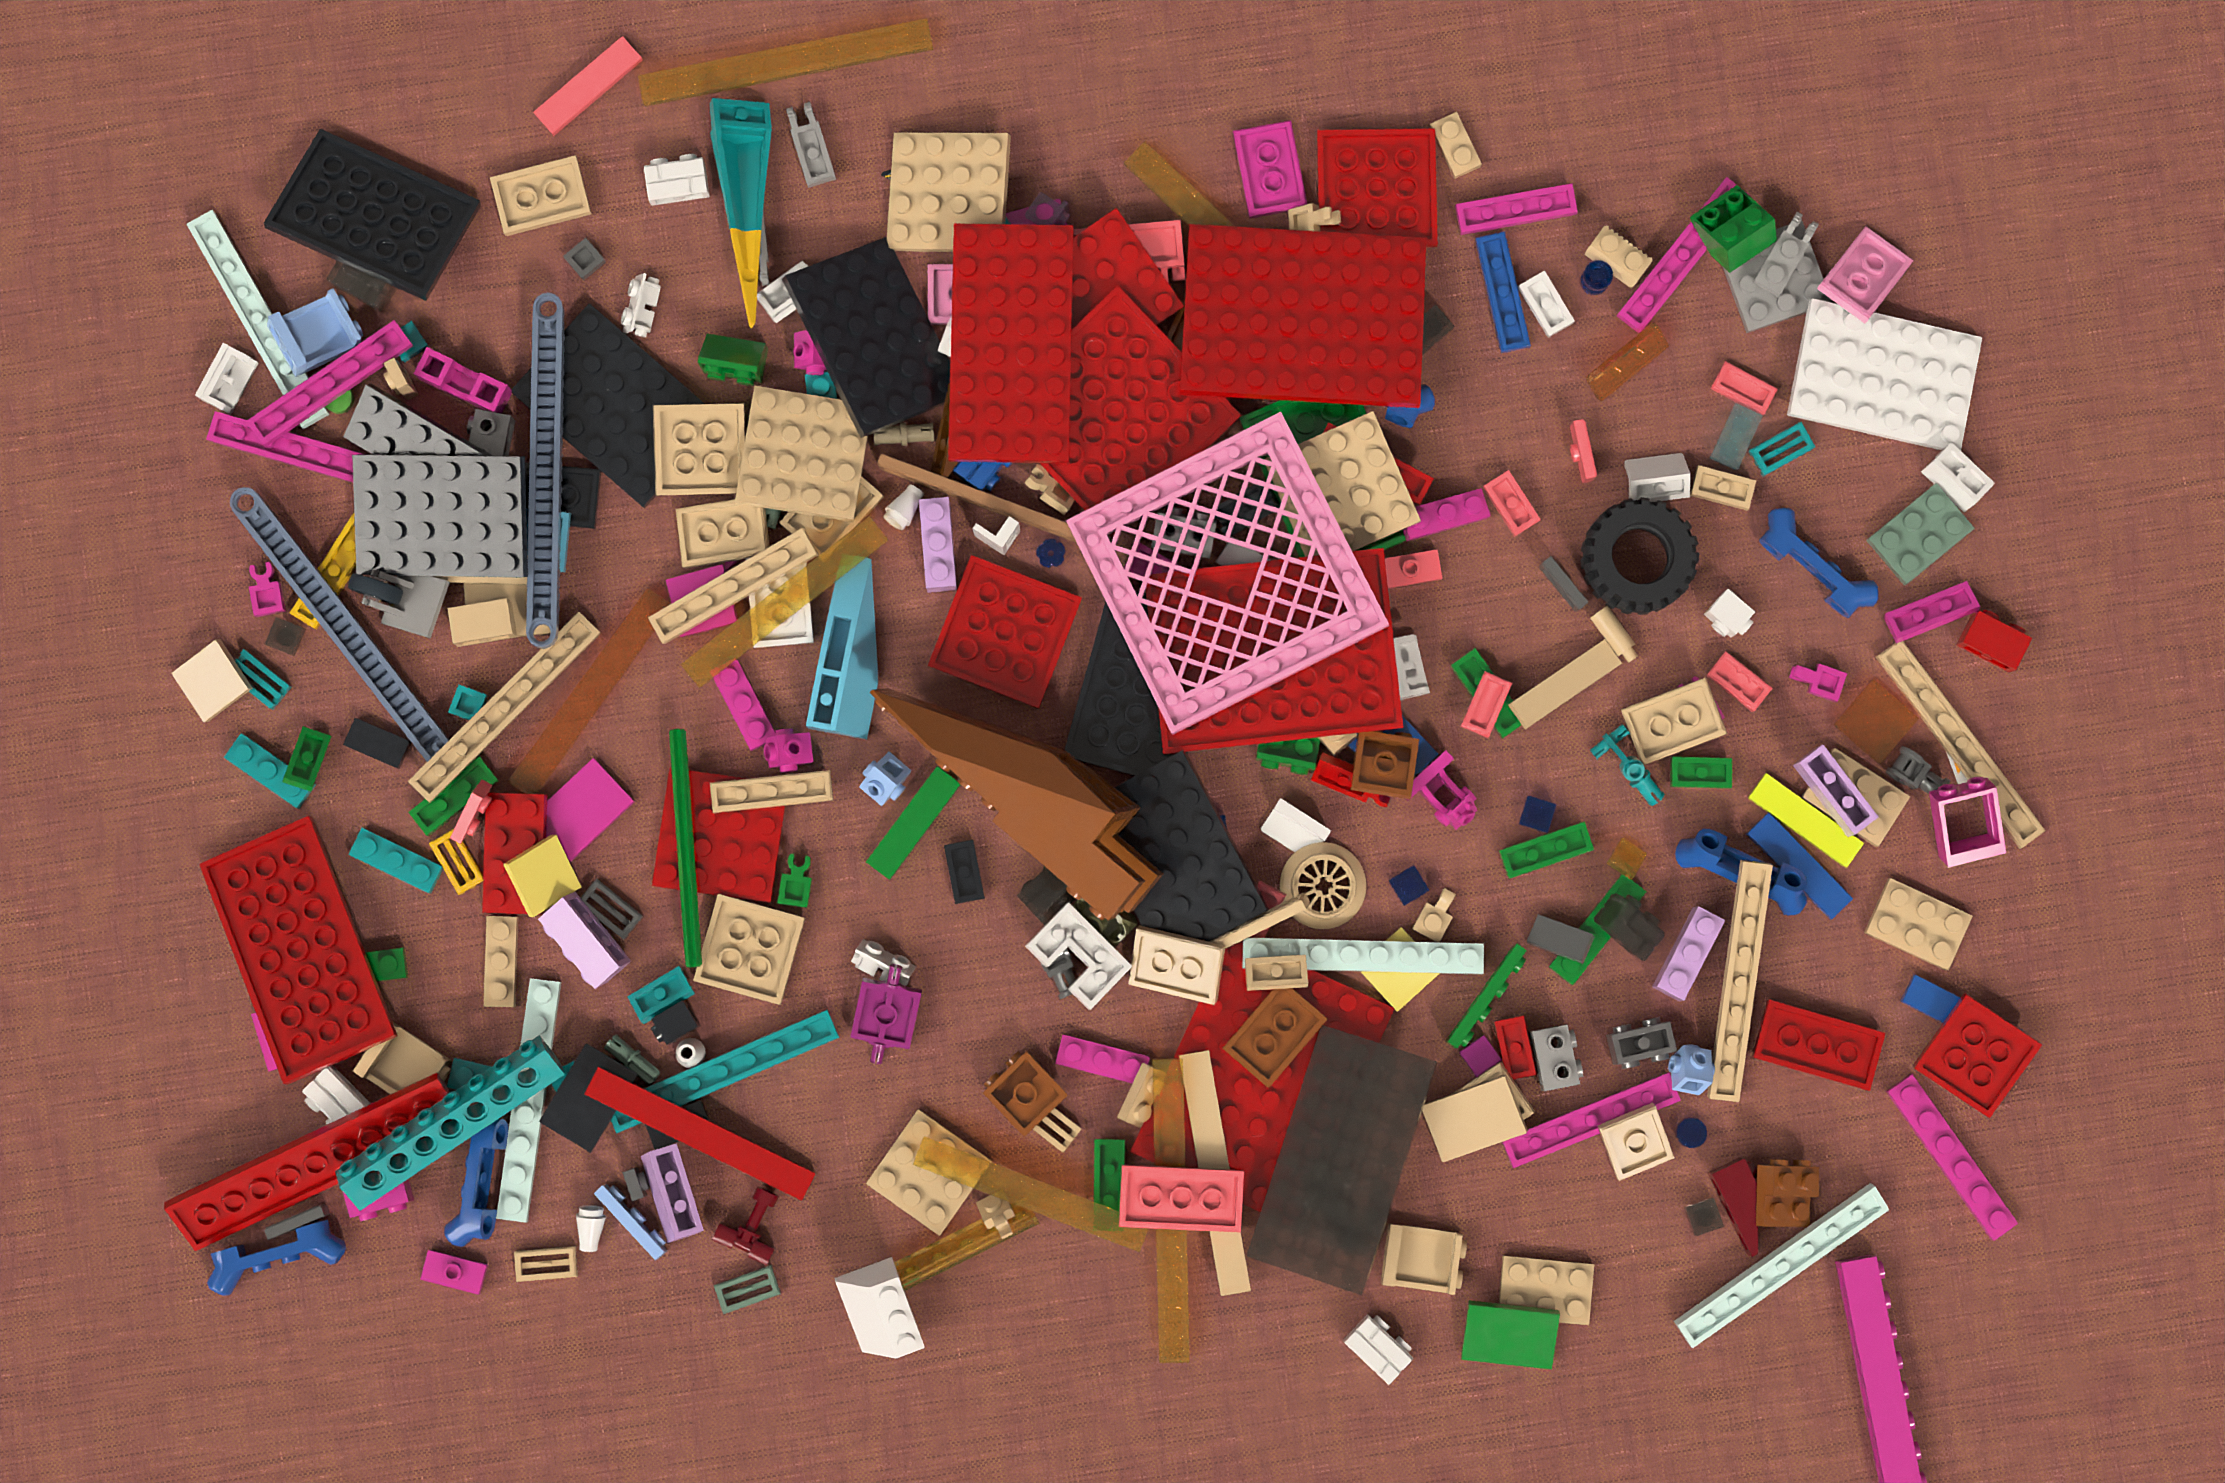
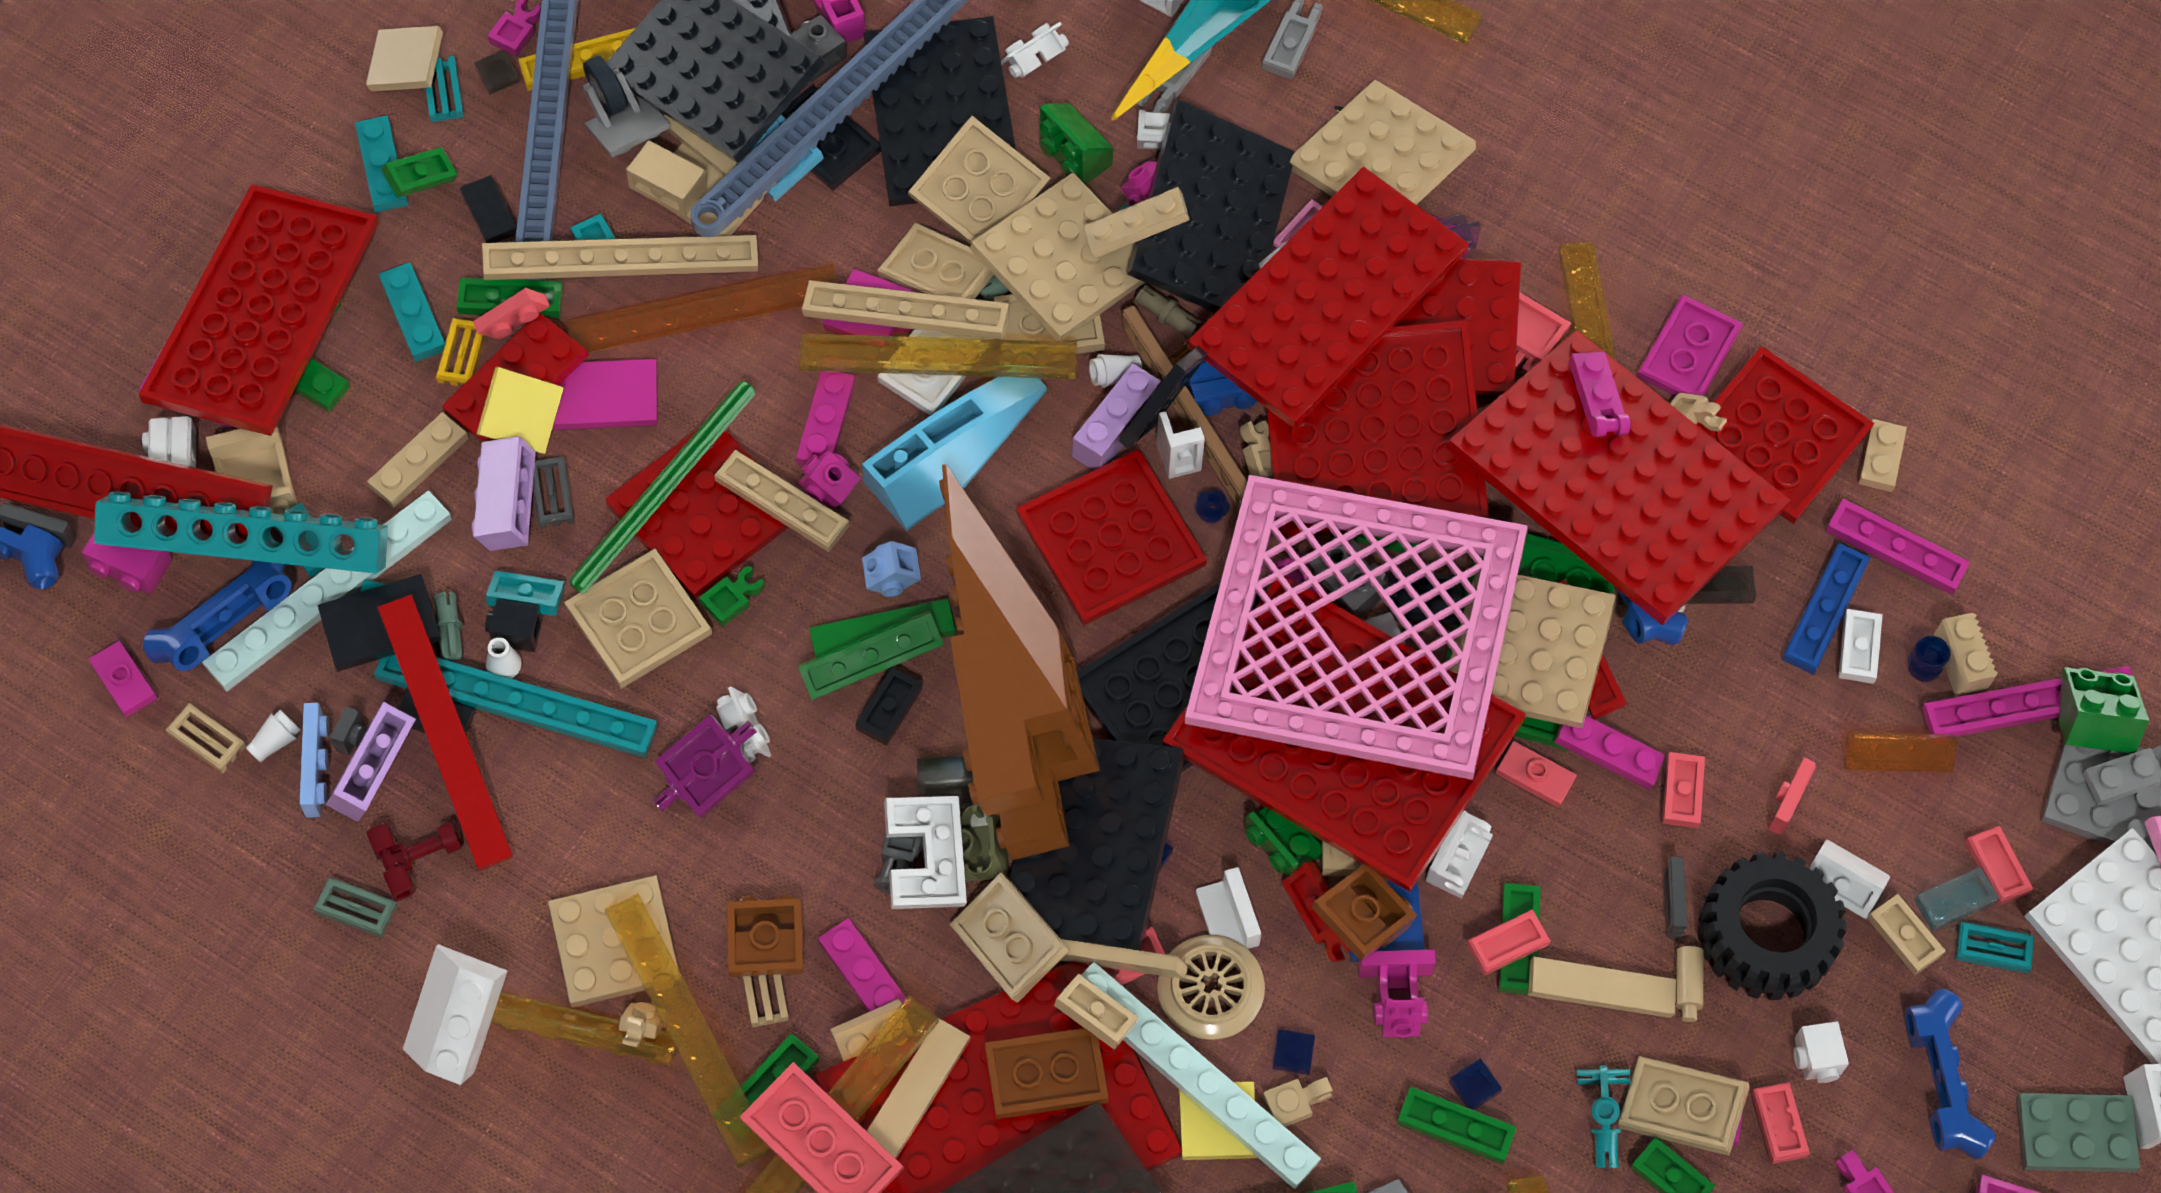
camera: 40 degrees right, 20 degrees down
(838, 397) = (1136, 222): none -> tan plate
(923, 849) = (870, 655): none -> green plate
(965, 512) = (1163, 396): none -> black tile
(1247, 268) = (1599, 394): none -> dark pink plate

